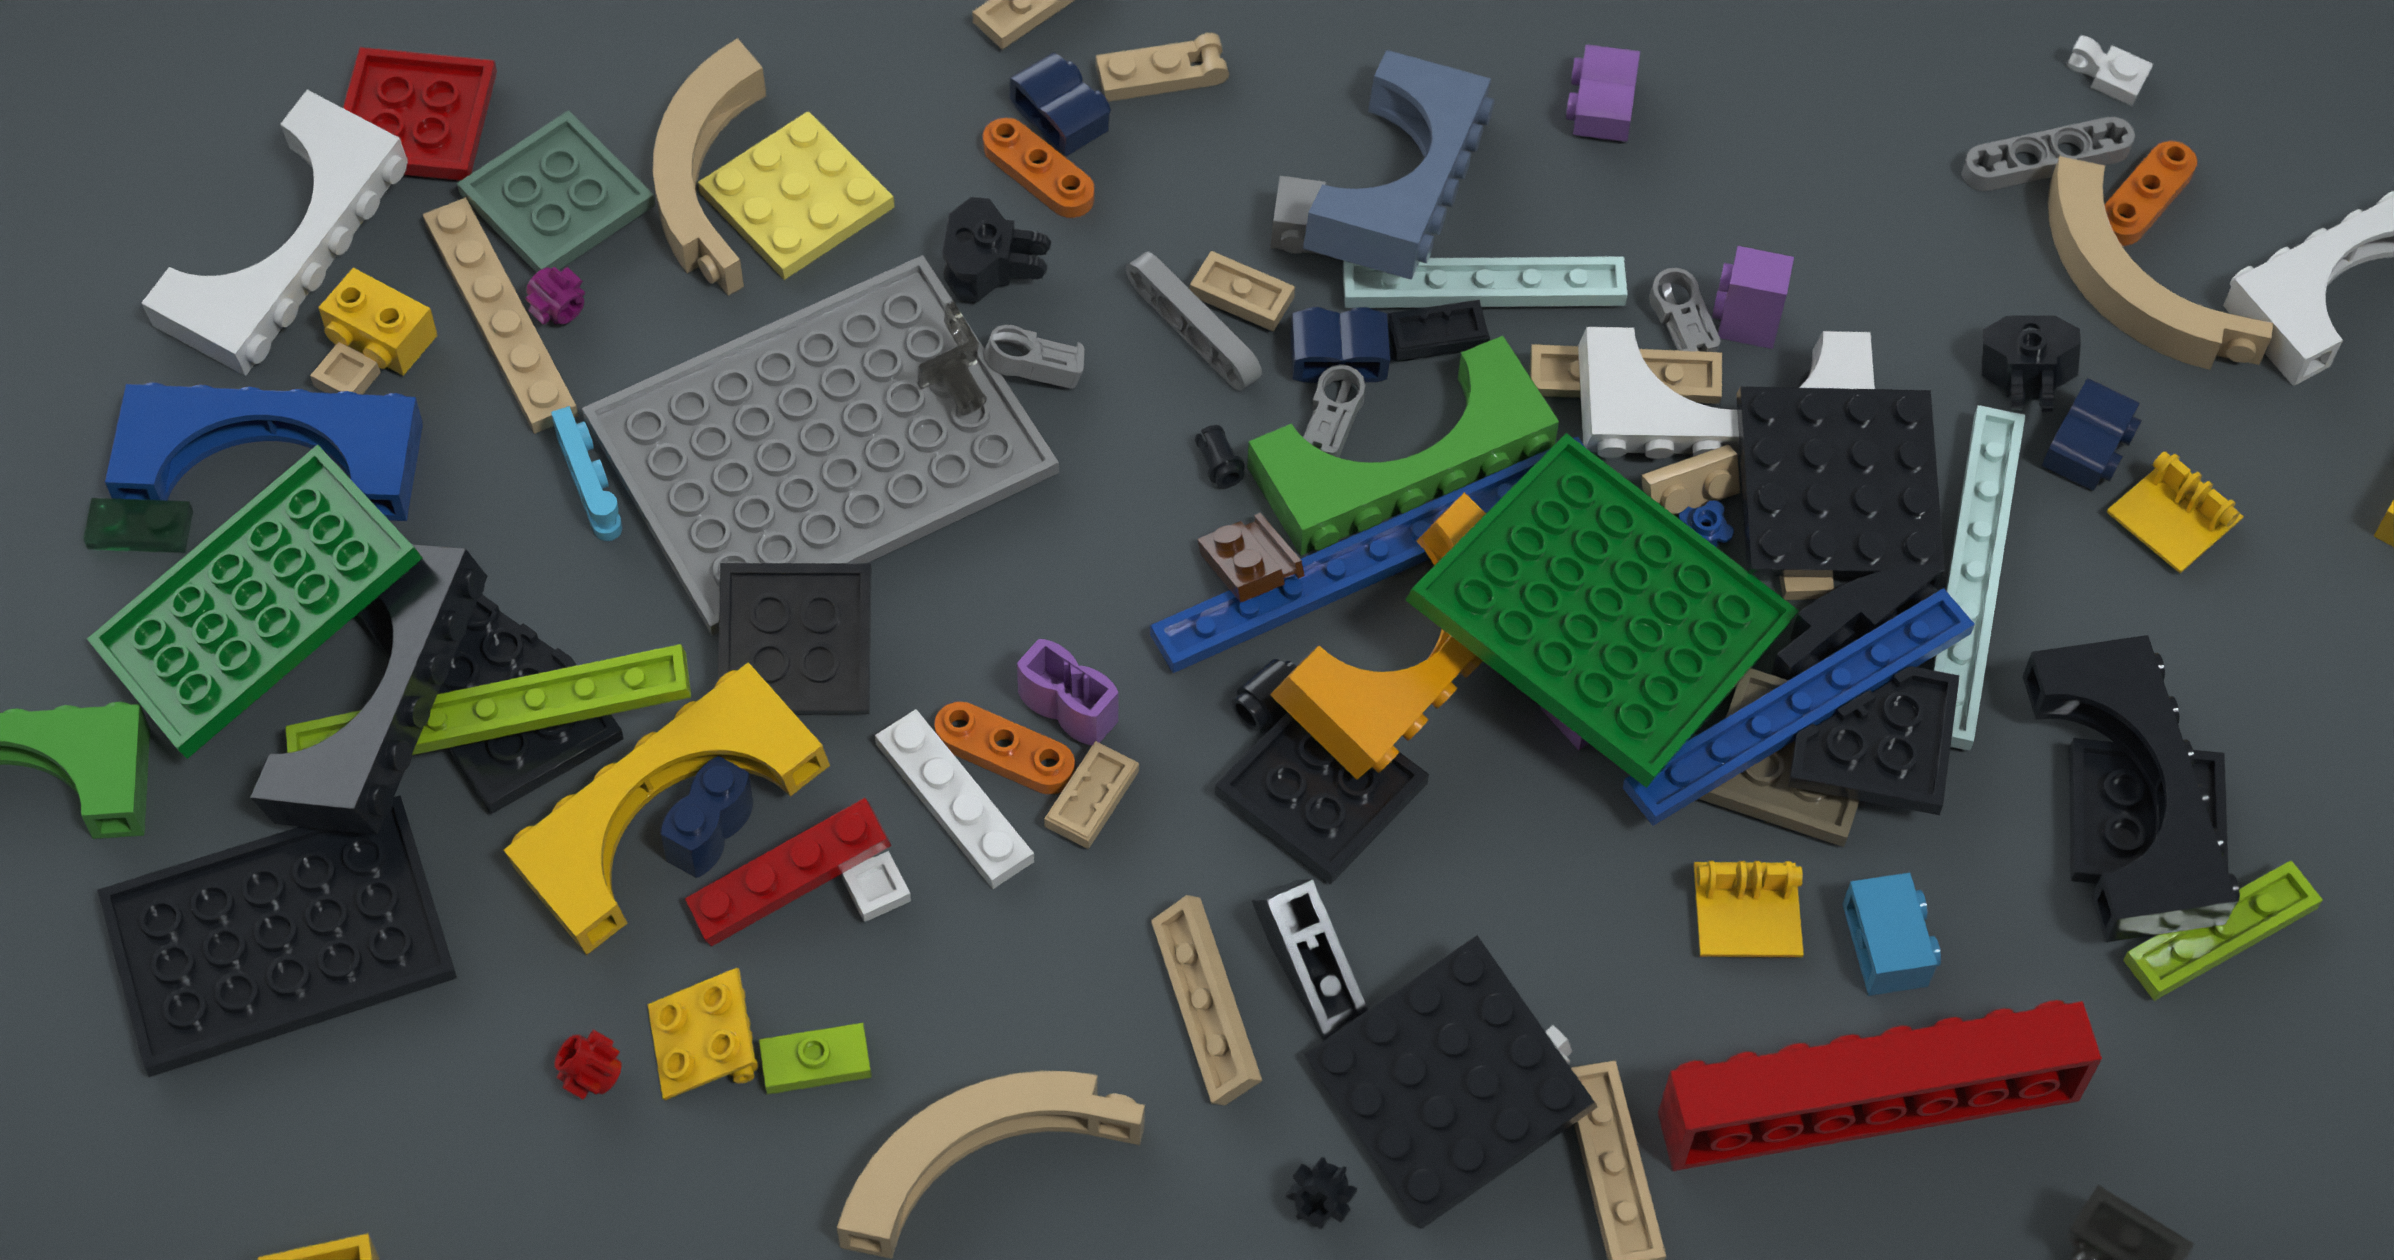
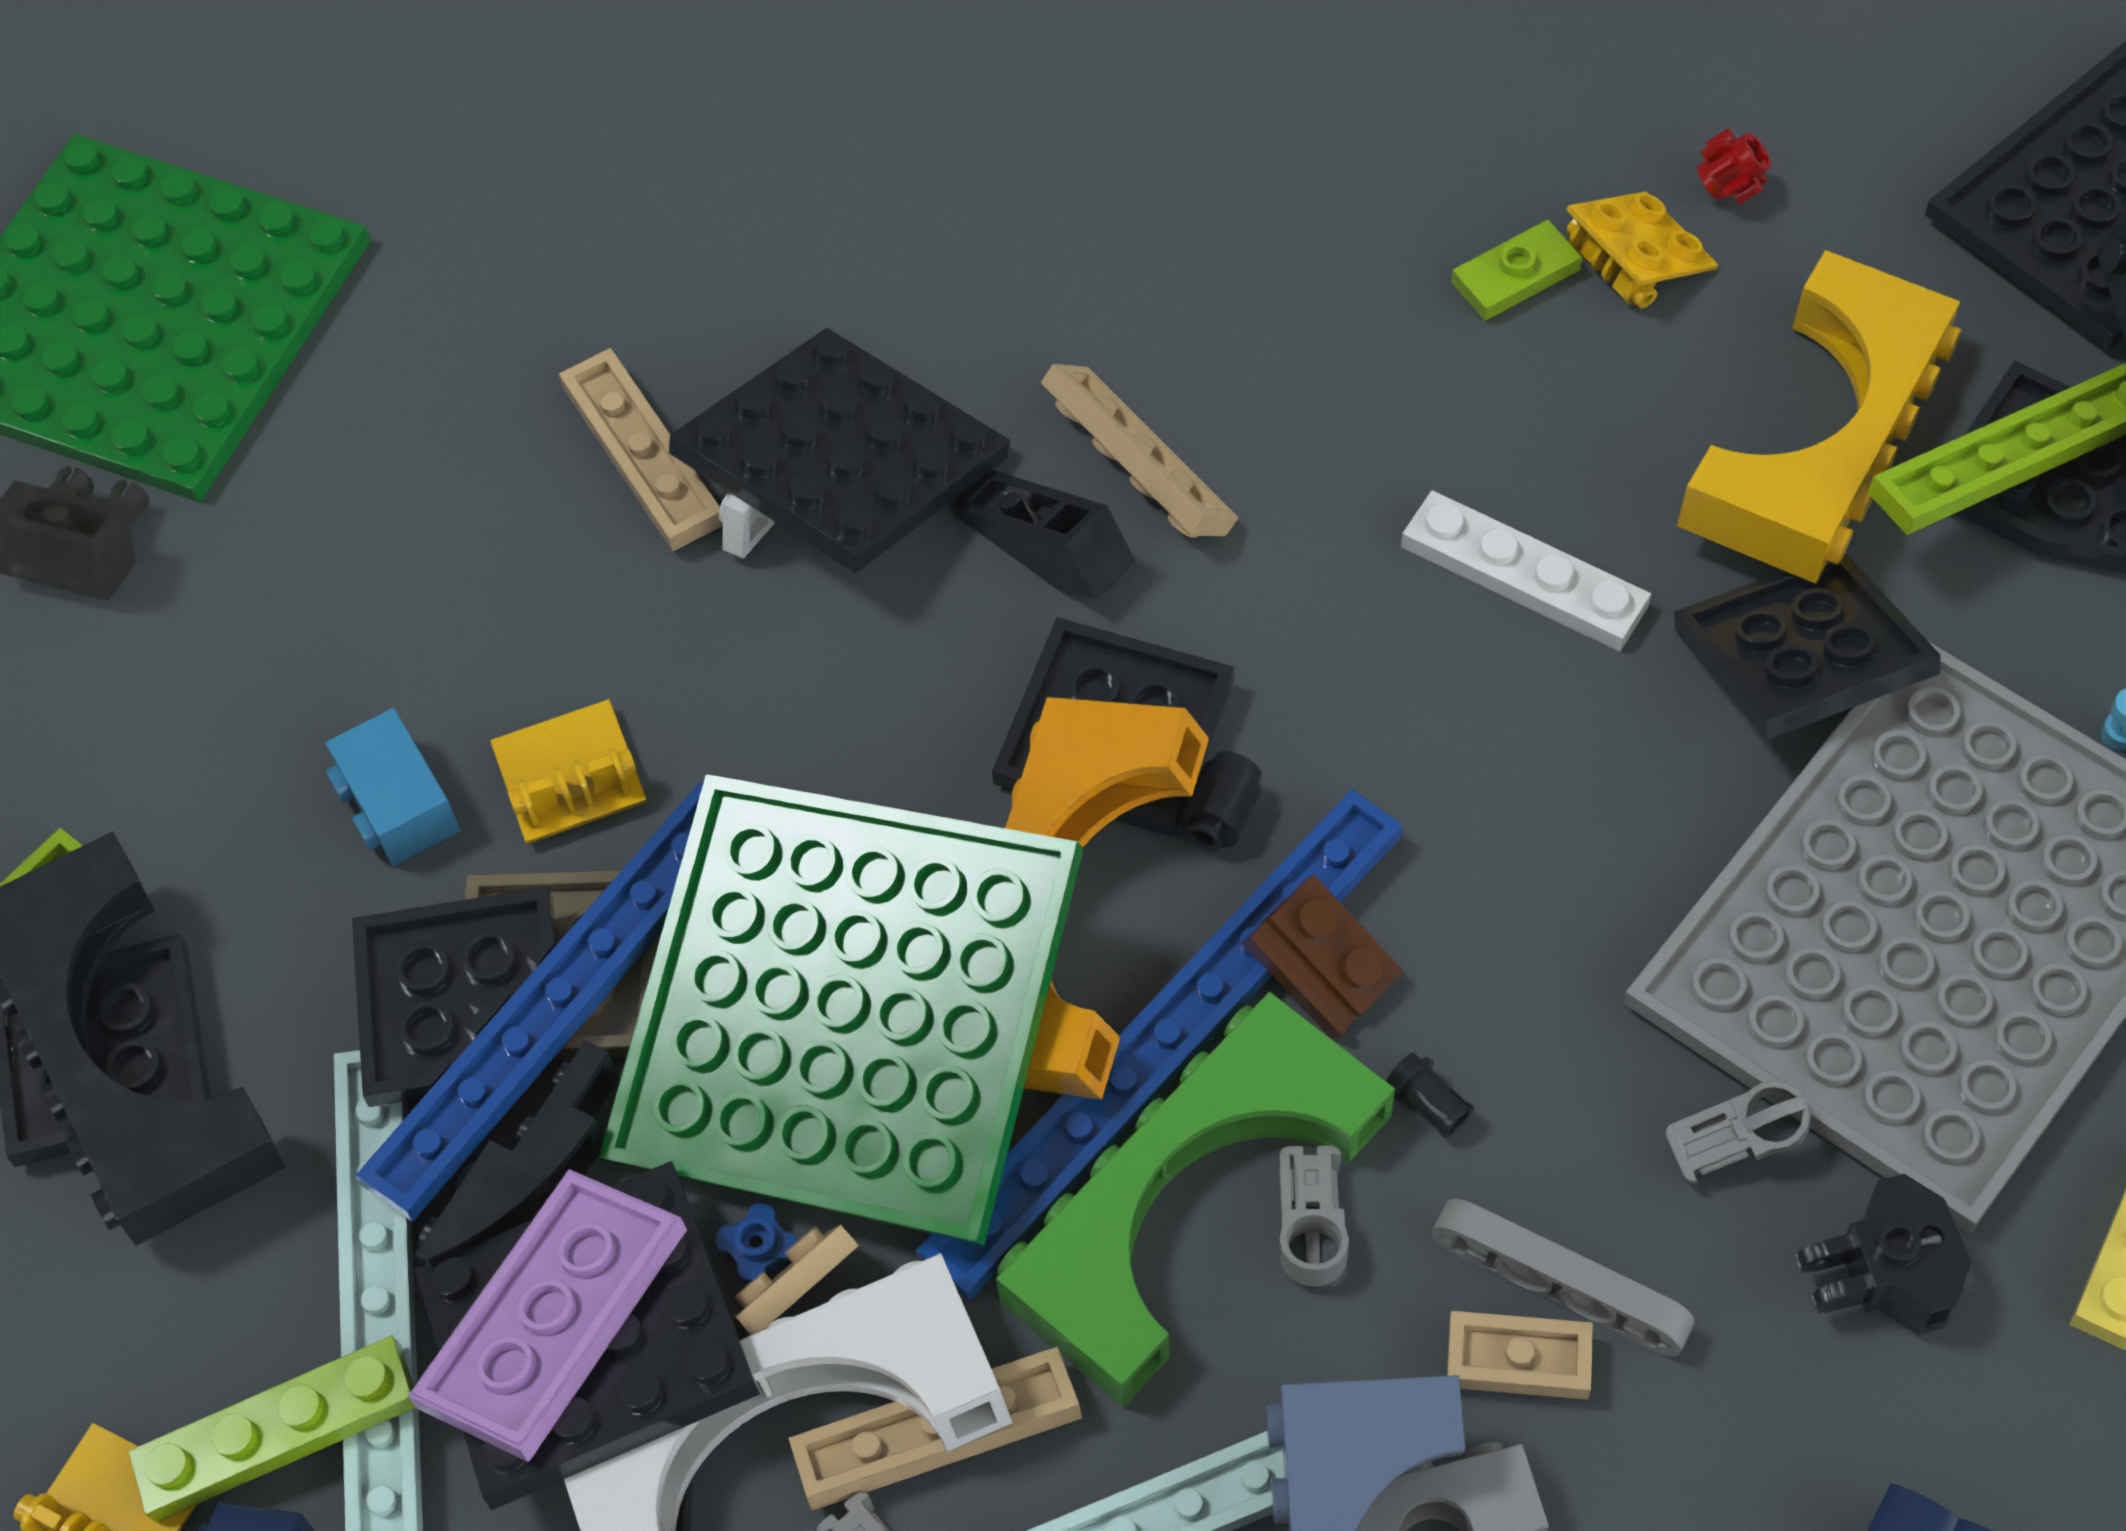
camera: 165 degrees right, 0 degrees up
(701, 822) = (1777, 408): dark blue brick -> none
(788, 872) = (1650, 406): red plate -> none
(876, 886) = (1563, 441): white plate -> none
(953, 365) = (1828, 1040): clear smoke bracket -> none
(964, 1124) = (1312, 264): tan arch -> none
(1016, 762) = (1474, 653): orange plate -> none
(1043, 180) = (1875, 1458): orange plate -> none
(1073, 694) = (1465, 698): medium lavender brick -> none
(1091, 795) = (1371, 619): tan plate -> none
(1313, 1204) = (935, 309): black gear -> none
(1332, 339) = (1346, 1315): dark blue brick -> none
(1437, 330) = (1219, 1401): black plate -> none
(1861, 478) = (547, 1314): none -> lavender tile
(1877, 1084) = (364, 590): red brick -> none
(2057, 508) = (272, 1429): none -> lime plate

